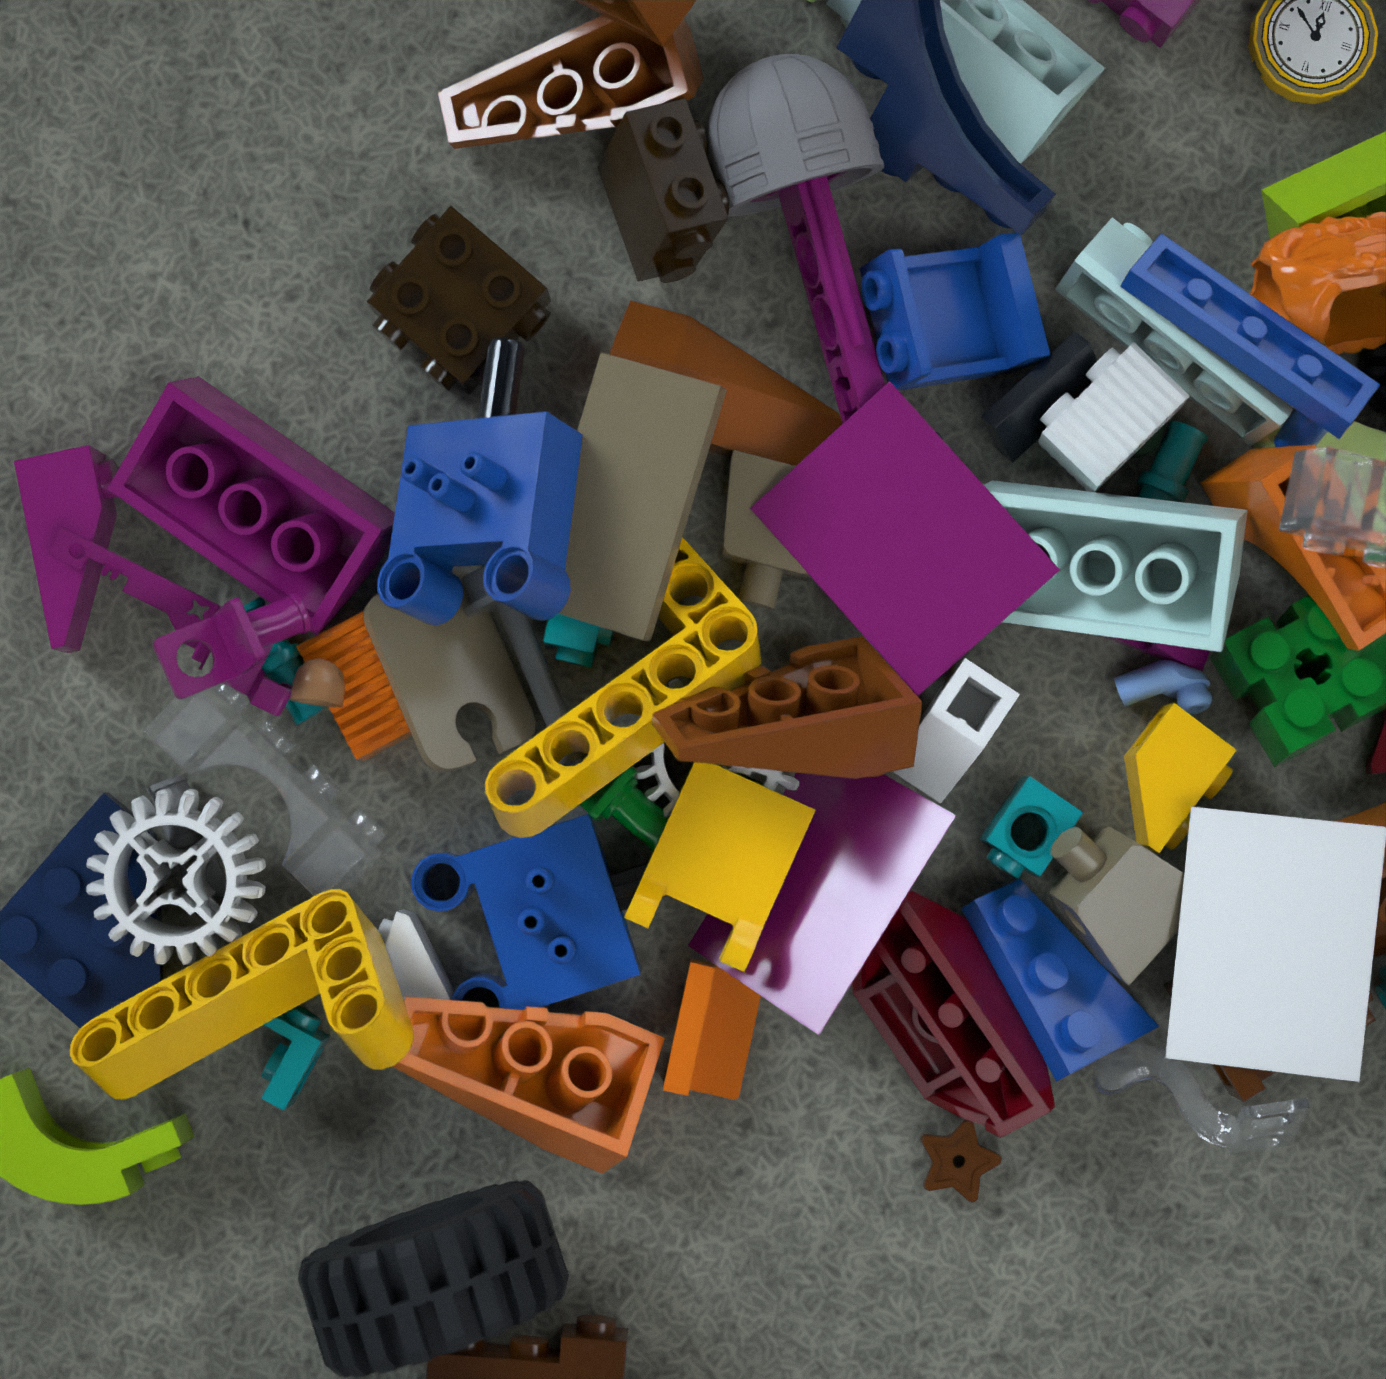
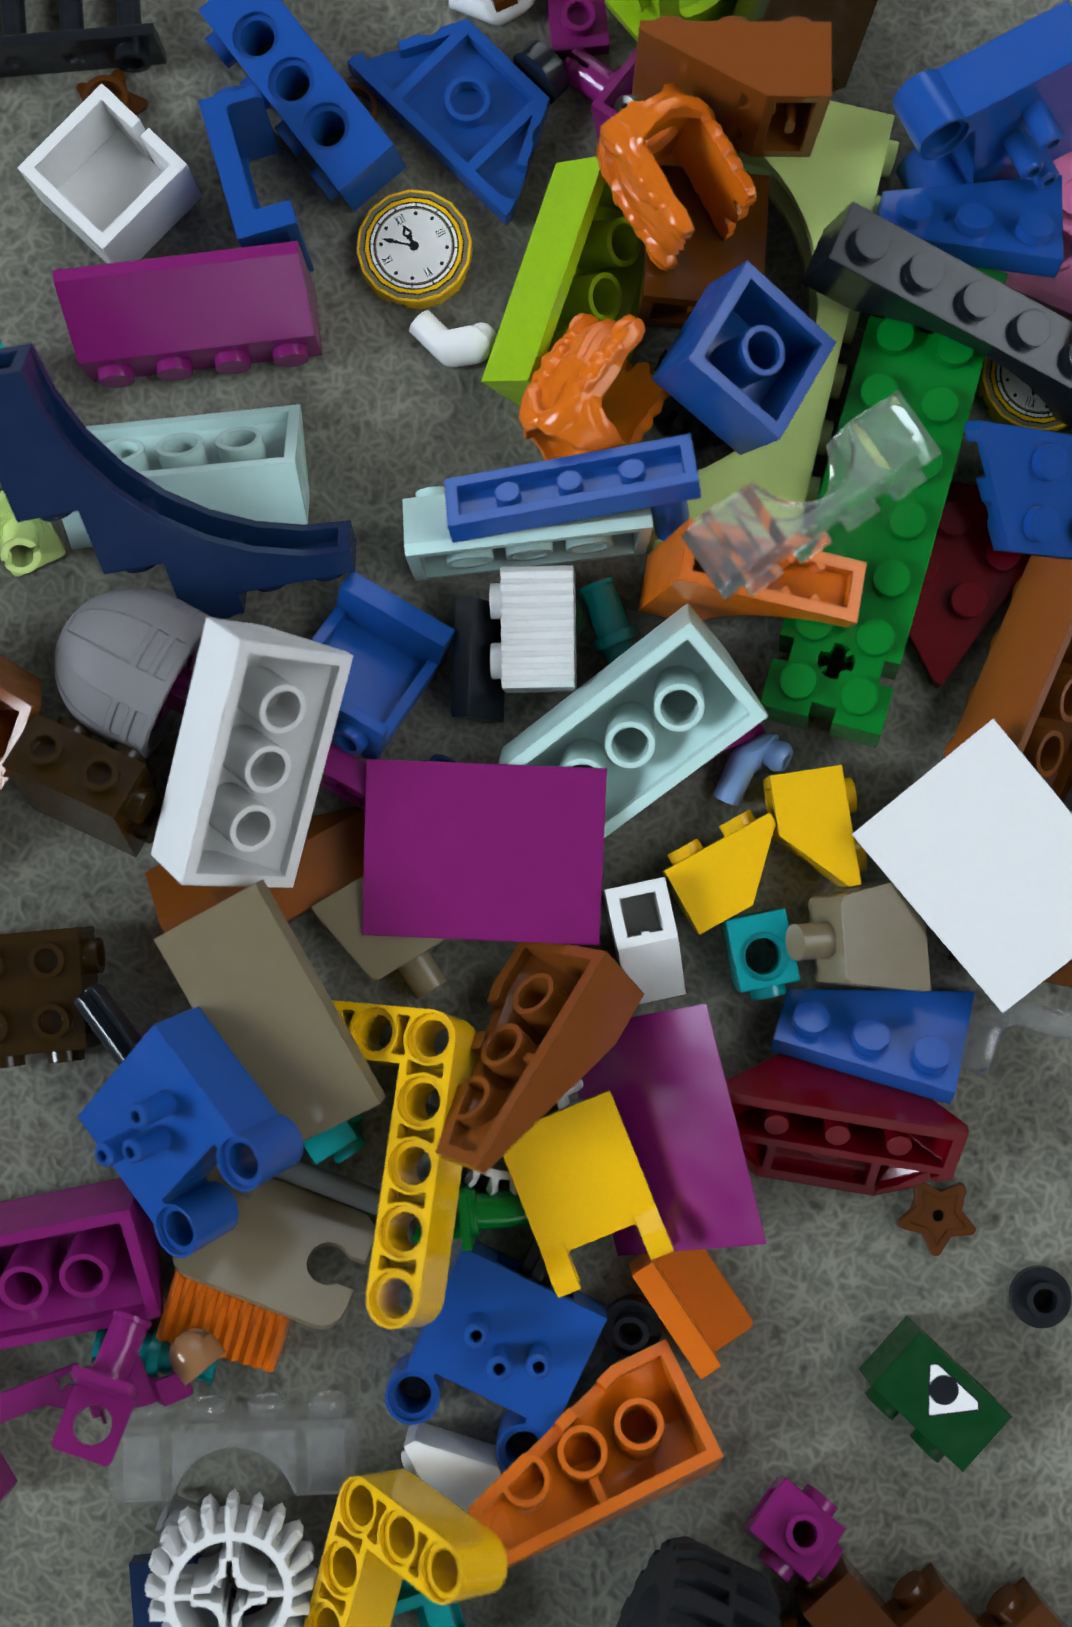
camera: 45 degrees left, 0 degrees up
(638, 1270) = (773, 1524): none -> magenta brick
(663, 994) = (636, 1310): none -> black plate
(810, 289) = (249, 756): none -> white slope
(820, 1285) = (934, 1393): none -> dark green brick
(966, 1281) = (1026, 1285): none -> black plate
(1061, 742) = (722, 876): none -> yellow slope
(1269, 144) = (453, 346): none -> white arm

